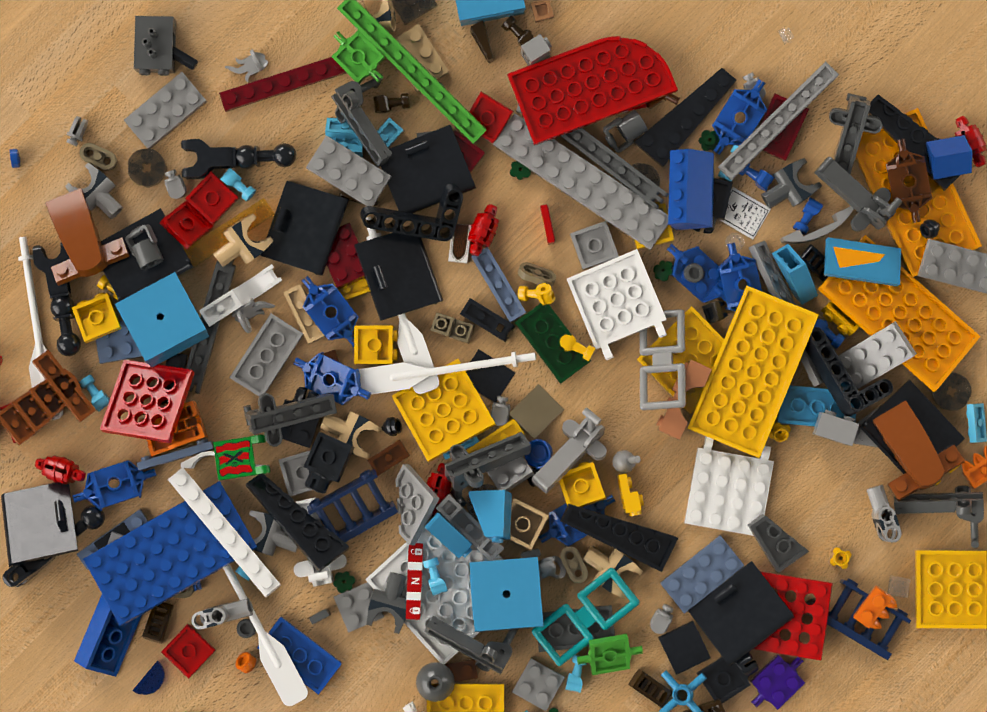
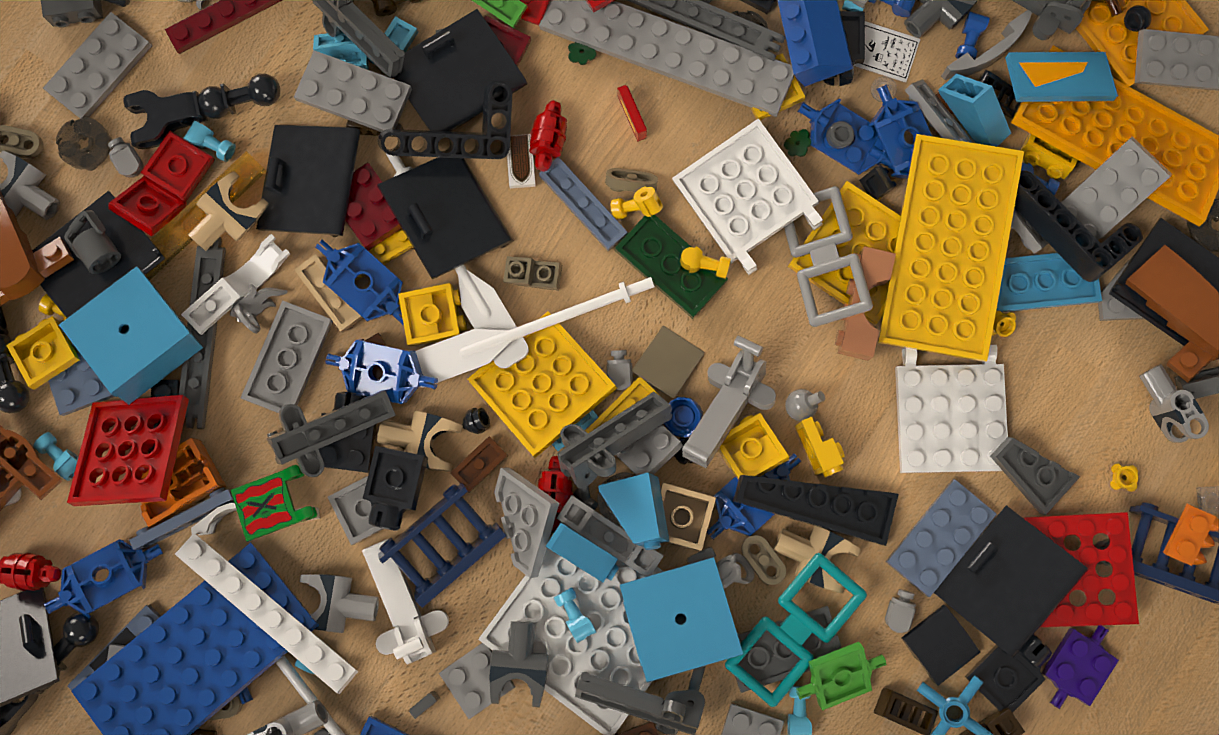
camera: 15 degrees left, 5 degrees down
(306, 532) = (385, 591): black wing -> none
(339, 578) = (444, 643): dark green plant -> none
(414, 581) = (547, 629): red sticker -> none
(486, 319) = (576, 252): black plate -> none
(489, 380) = (596, 330): black sticker -> none
(594, 245) = (699, 127): light grey plate -> none
(836, 428) = (1079, 301): light grey brick -> none

